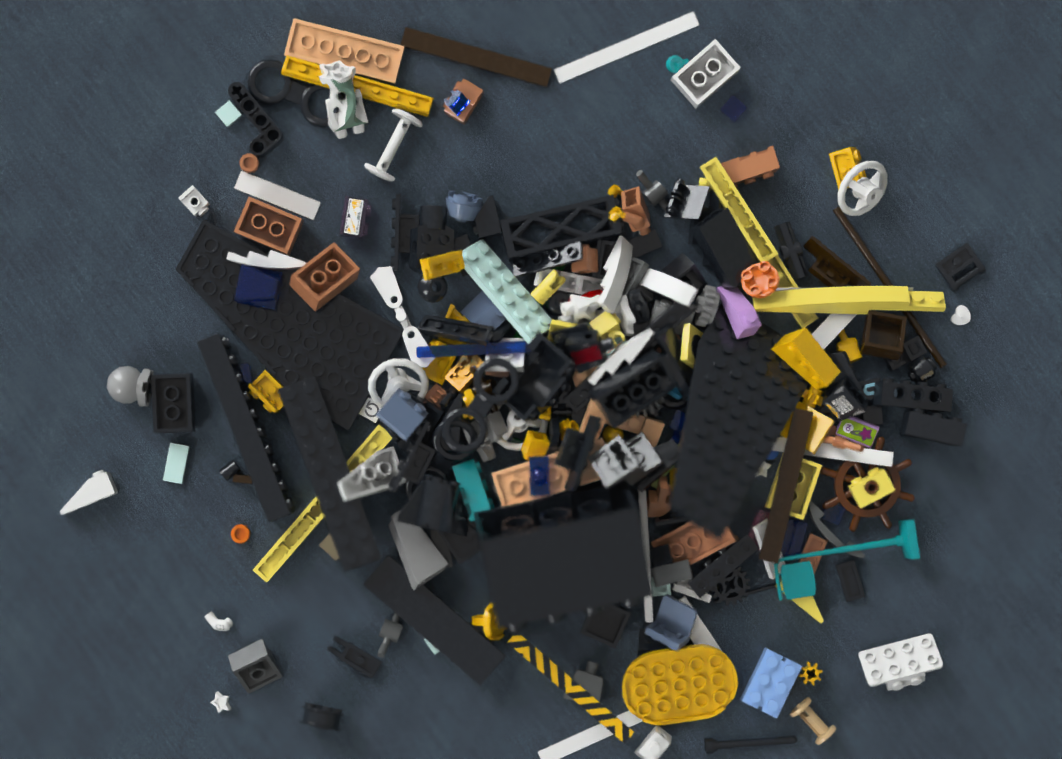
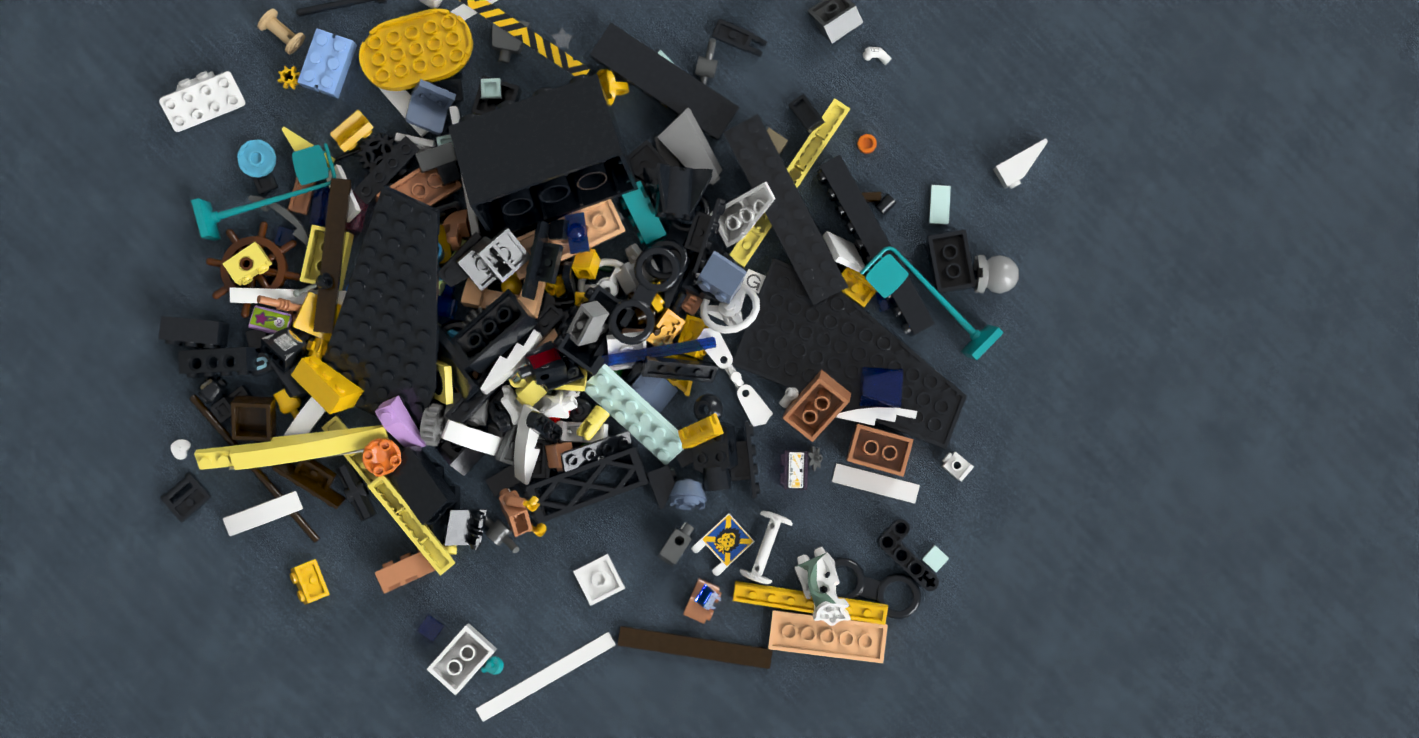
camera: 175 degrees right, 0 degrees up
(235, 395) = (888, 276): none -> teal piece
(249, 163) = (907, 511): nougat tile -> none
(277, 425) = (843, 252): none -> white tile
(296, 571) = (806, 113): none -> black tile
(333, 226) = (815, 458): none -> dark grey plant
(349, 291) = (790, 395): none -> white arm
(432, 156) = (726, 541): none -> flag
(487, 152) = (671, 551): none -> dark grey torso
(532, 678) = (562, 39): none -> clear piece
(539, 384) = (588, 323): none -> light grey hinge
(557, 481) = (558, 229): none -> black tile
(562, 135) = (599, 579): none -> white tile
(595, 288) = (544, 421): none -> black beam
(608, 633) = (491, 88): none -> light aqua tile
(753, 610) = (351, 131): none -> yellow bracket
(797, 459) = (323, 281): none -> black hinge
(852, 595) = (256, 158): none -> medium azure tile
(865, 190) = (287, 561): white piece -> none
(885, 241) = (262, 513): none -> white slope

